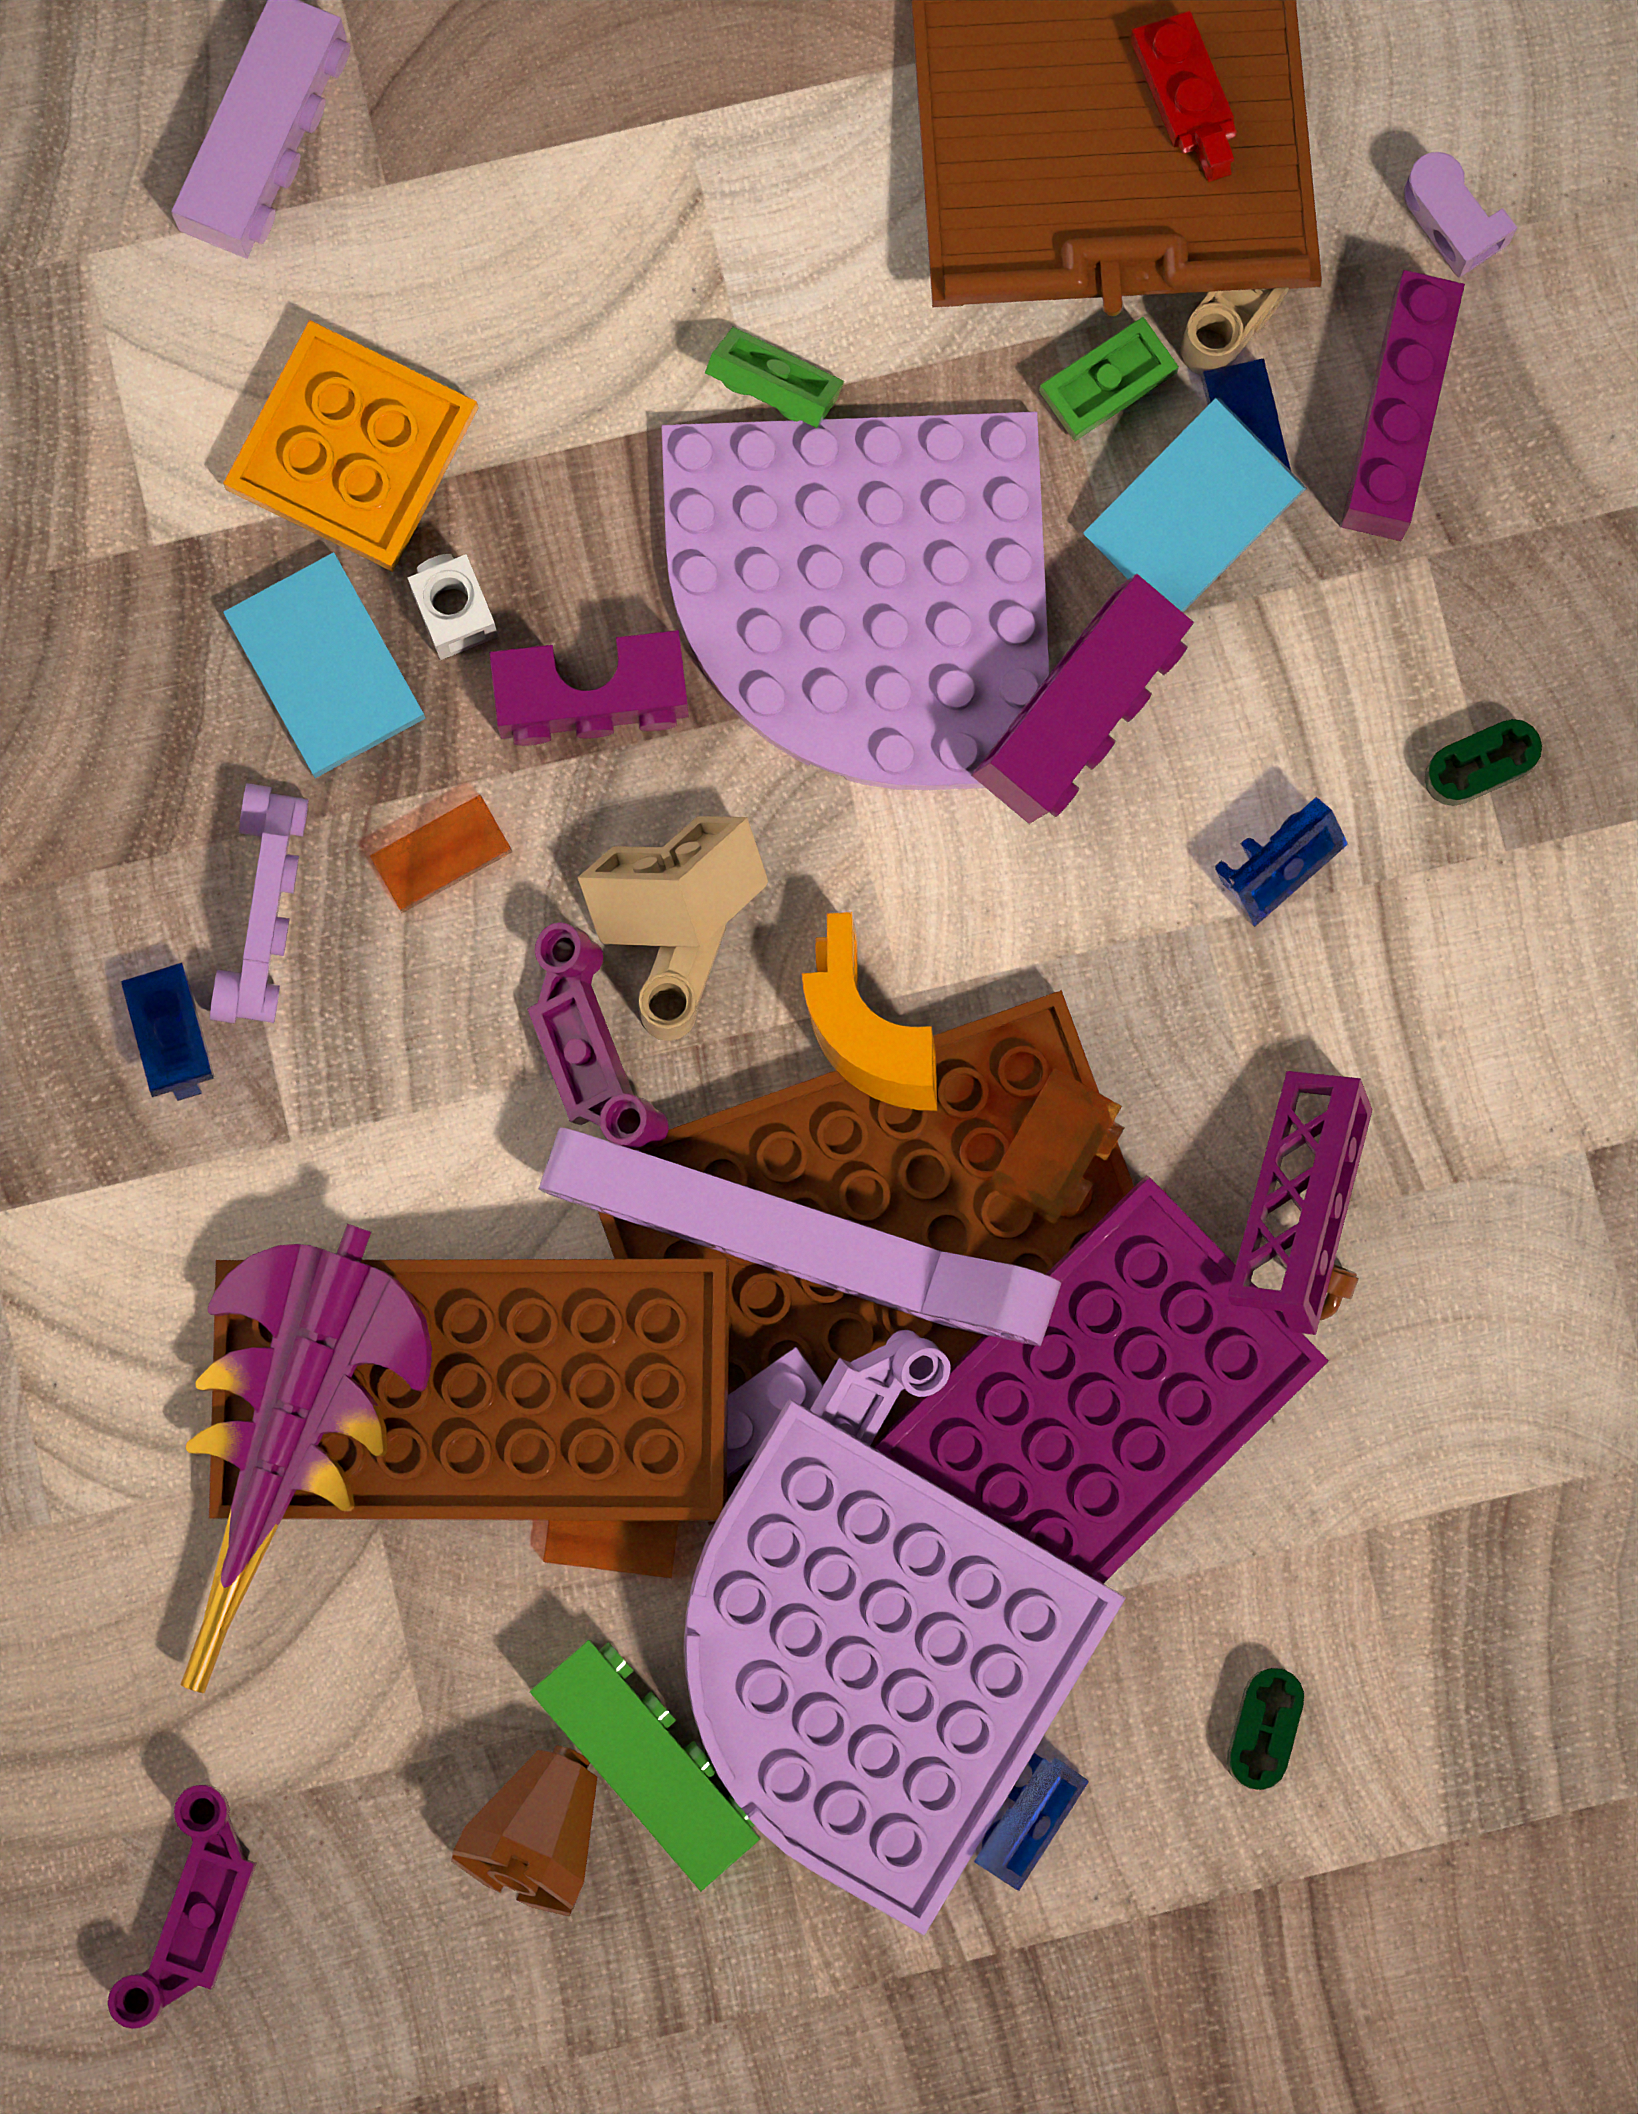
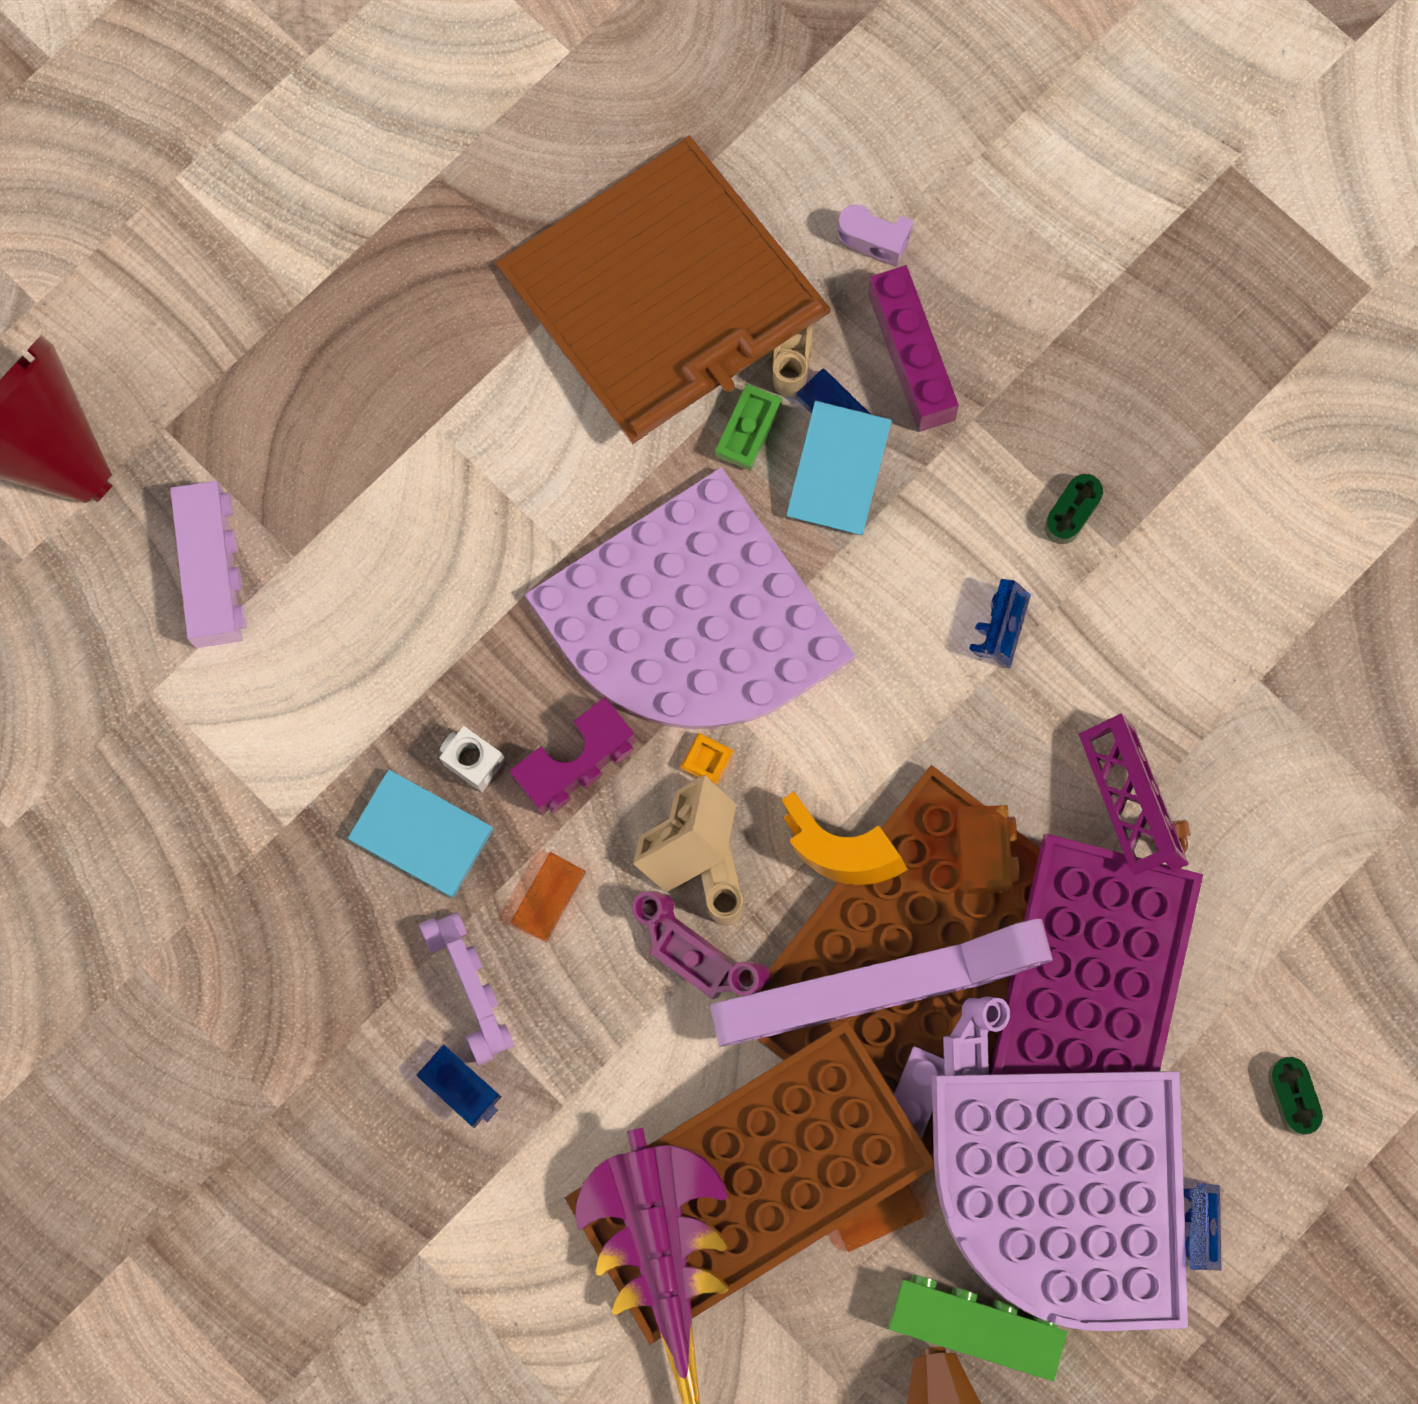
camera: 25 degrees left, 5 degrees down
(351, 445) = (362, 706): light orange plate -> none
(767, 799) = (707, 758): none -> light orange tile
(774, 377) = (569, 532): bright green plate -> none
(1084, 700) = (846, 602): magenta brick -> none
(1187, 91) = (696, 252): red hinge -> none

